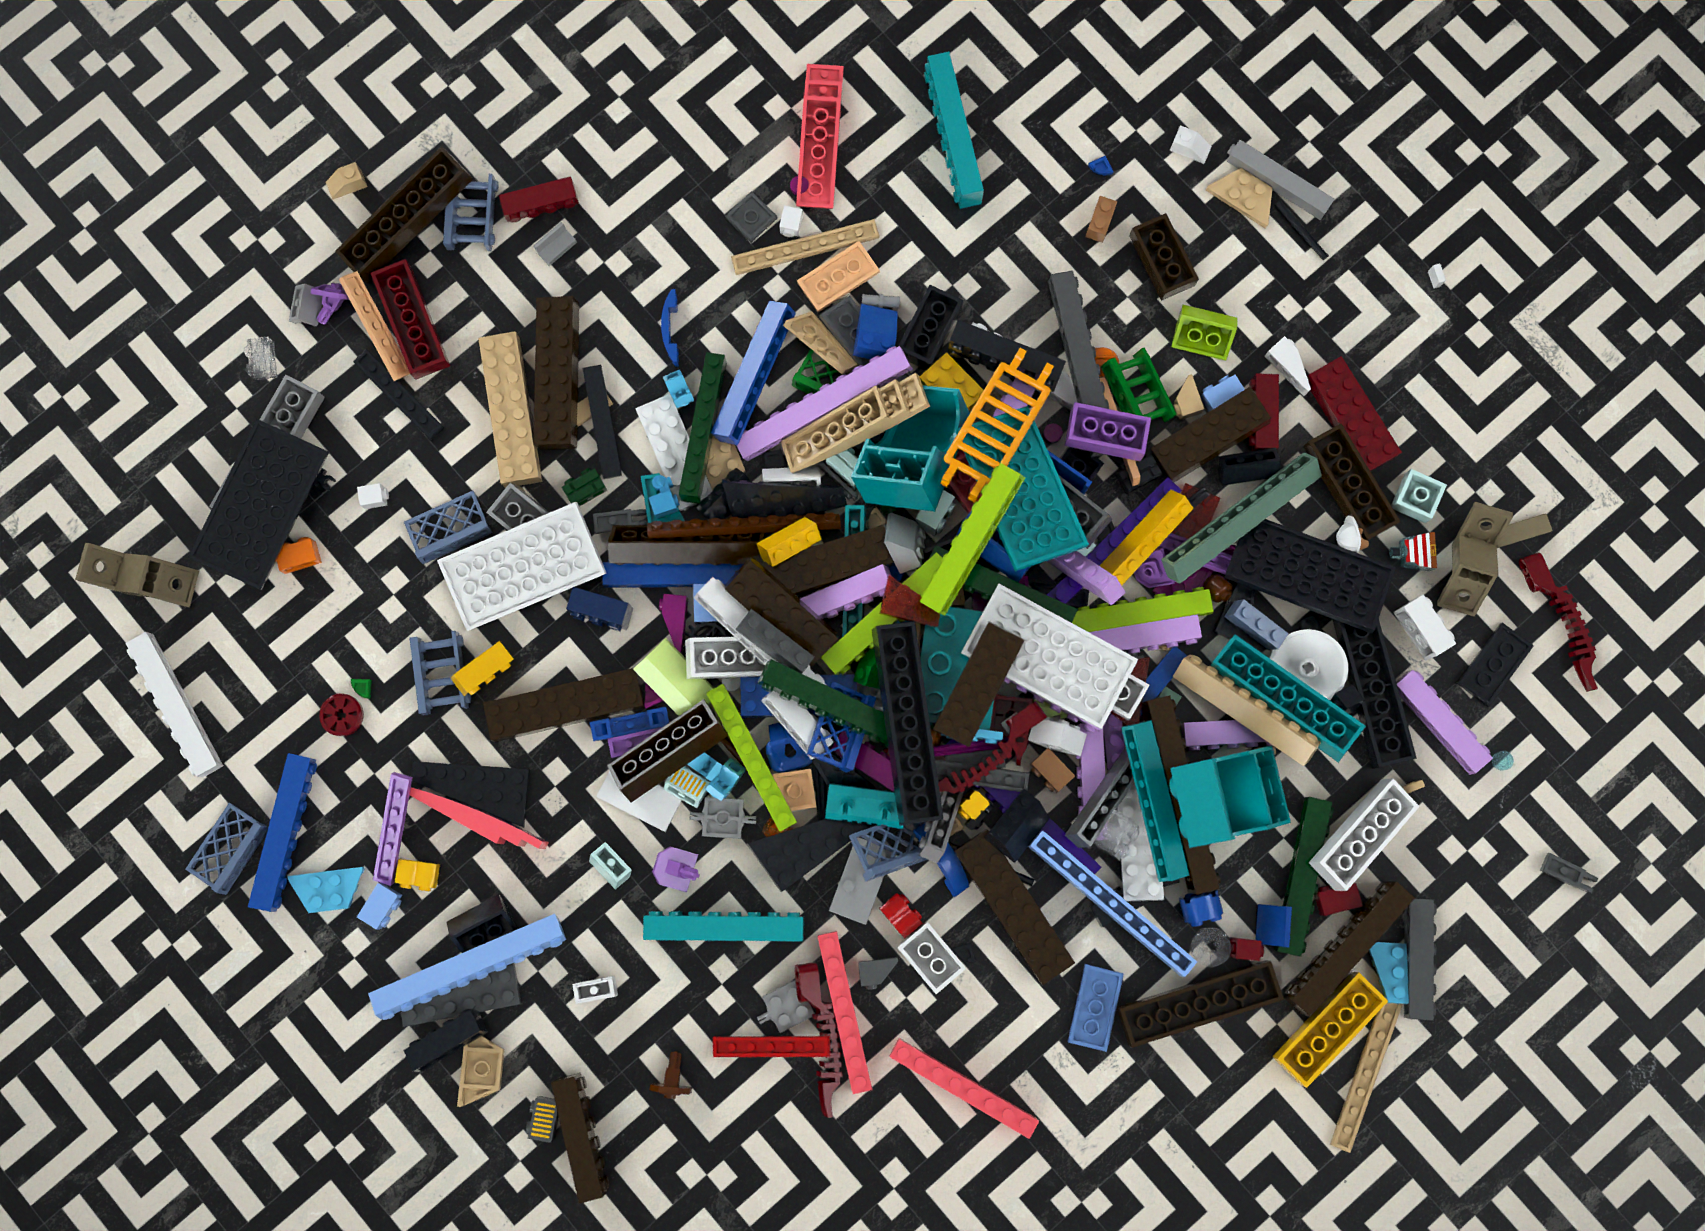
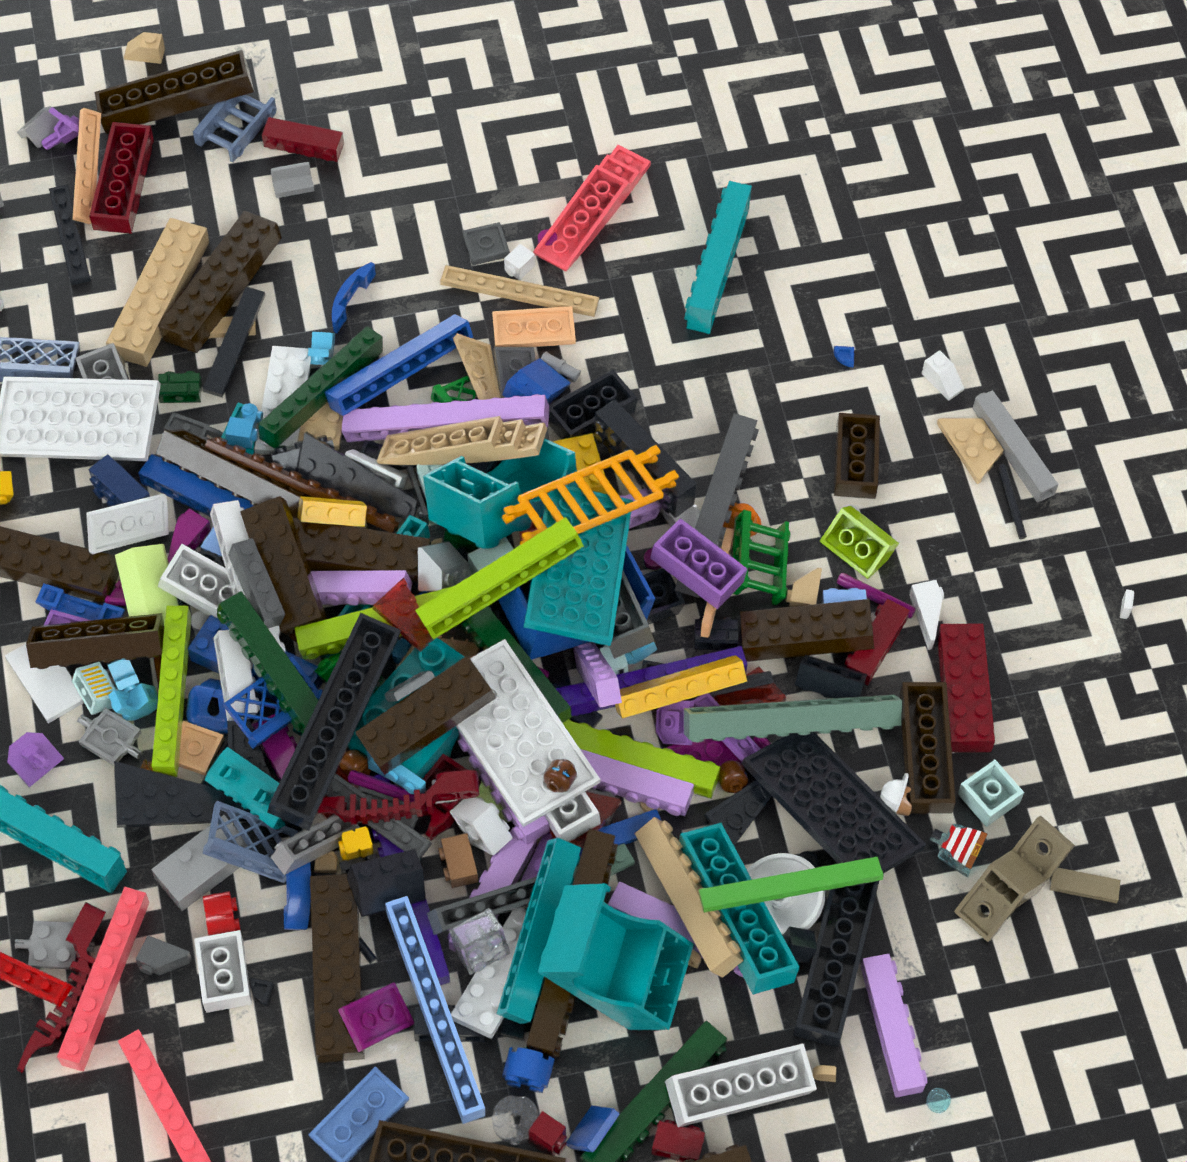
camera: 25 degrees right, 20 degrees down
(626, 637) = (127, 523): none -> white tile
(951, 666) = (409, 686): none -> tile
(1068, 930) = (376, 1016): none -> magenta tile
(1101, 219) = (816, 396): medium nougat brick -> none
(1110, 676) = (560, 775): none -> reddish brown head
(1239, 371) = (871, 592): none -> magenta axle
(1256, 624) = (749, 826): sand blue brick -> none
(1324, 664) = (790, 884): none -> bright green tile
(1425, 627) = (925, 918): white brick -> none
(1495, 664) = (984, 1001): black tile -> none
(1539, 579) = (1086, 1031): dark red piece -> none

